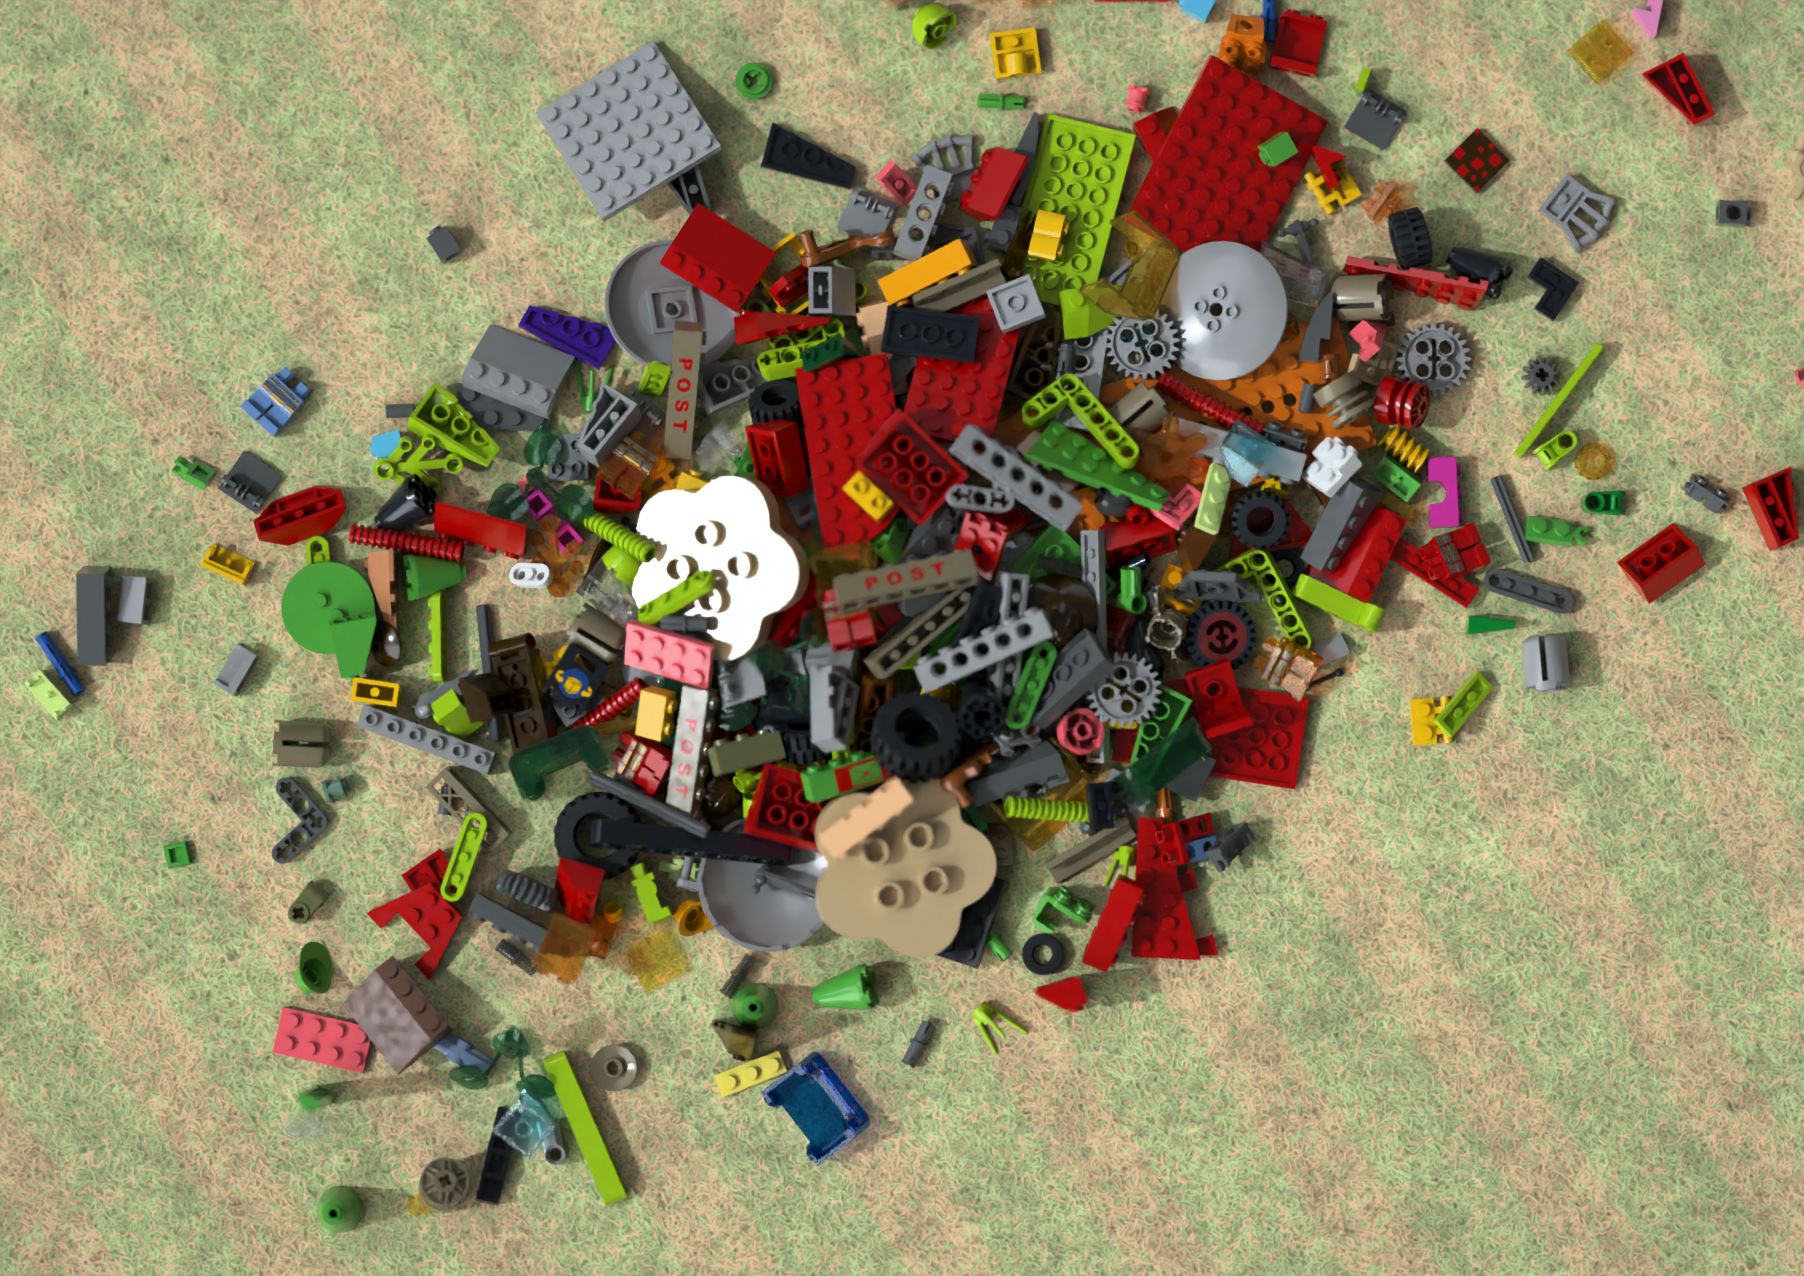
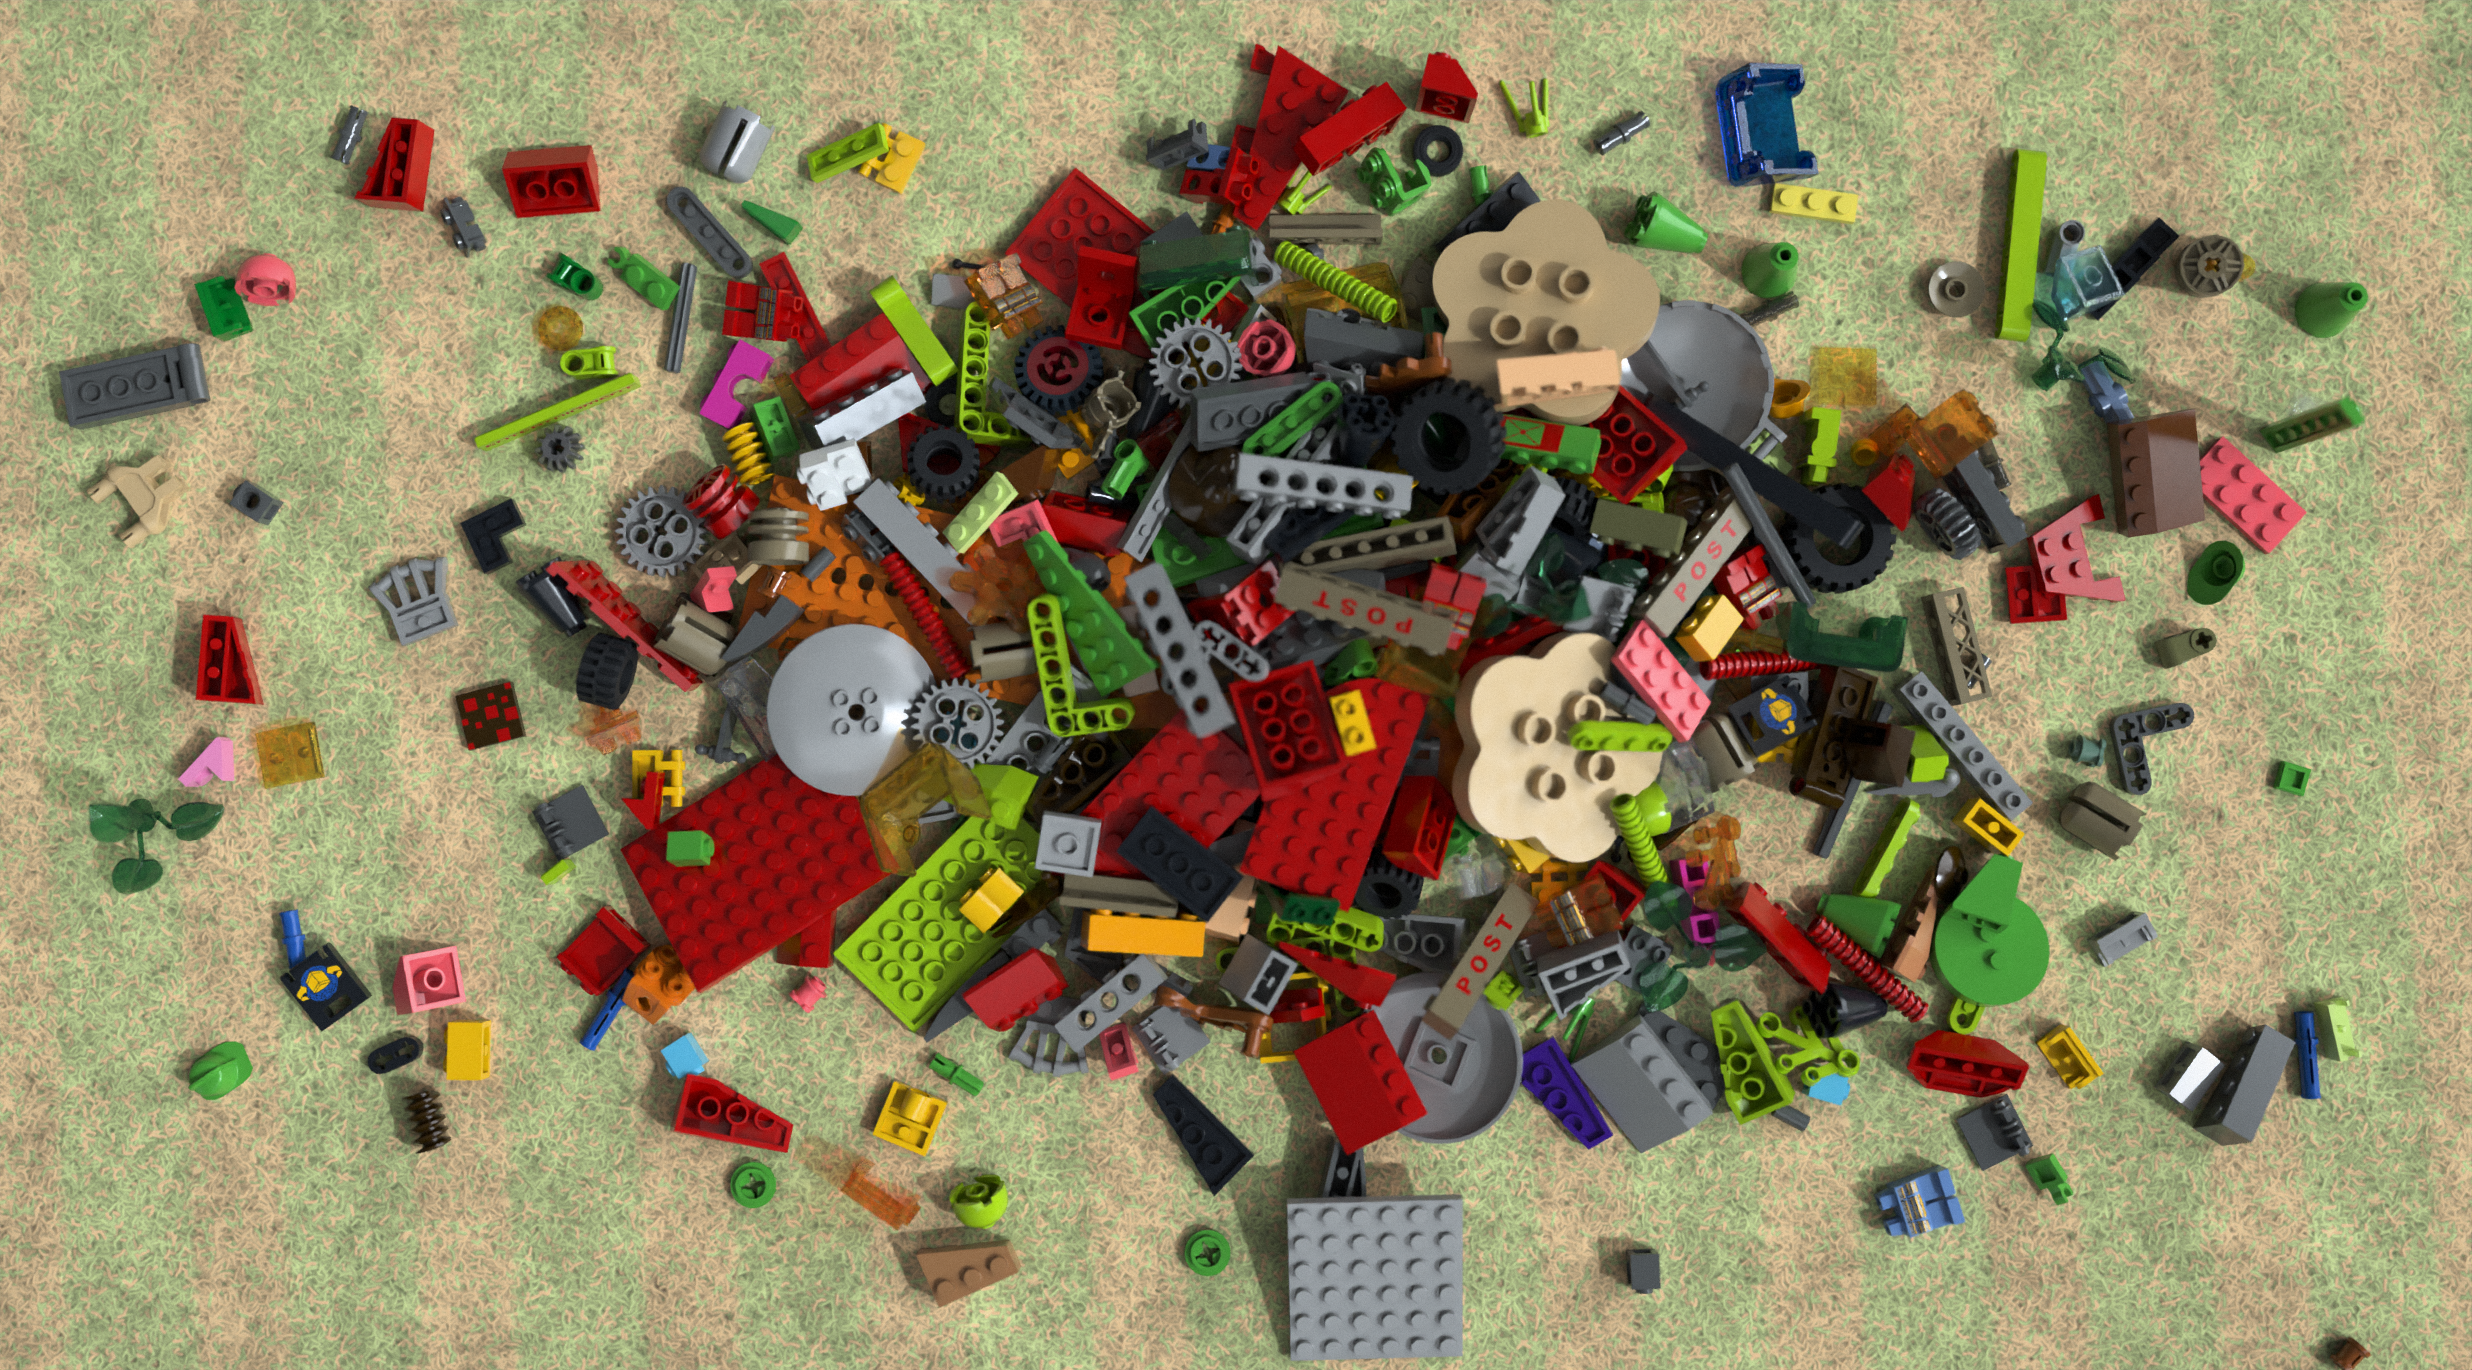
camera: 150 degrees left, 0 degrees up
(464, 856) = (1994, 597): lime plate -> none
(533, 575) = (1748, 852): white plate -> none
(736, 1039) = (1813, 246): wedge -> none
(1100, 805) = (1290, 260): black hinge -> none
(1137, 515) = (1072, 542): red plate -> none
(1244, 452) = (917, 538): clear light blue slope -> none

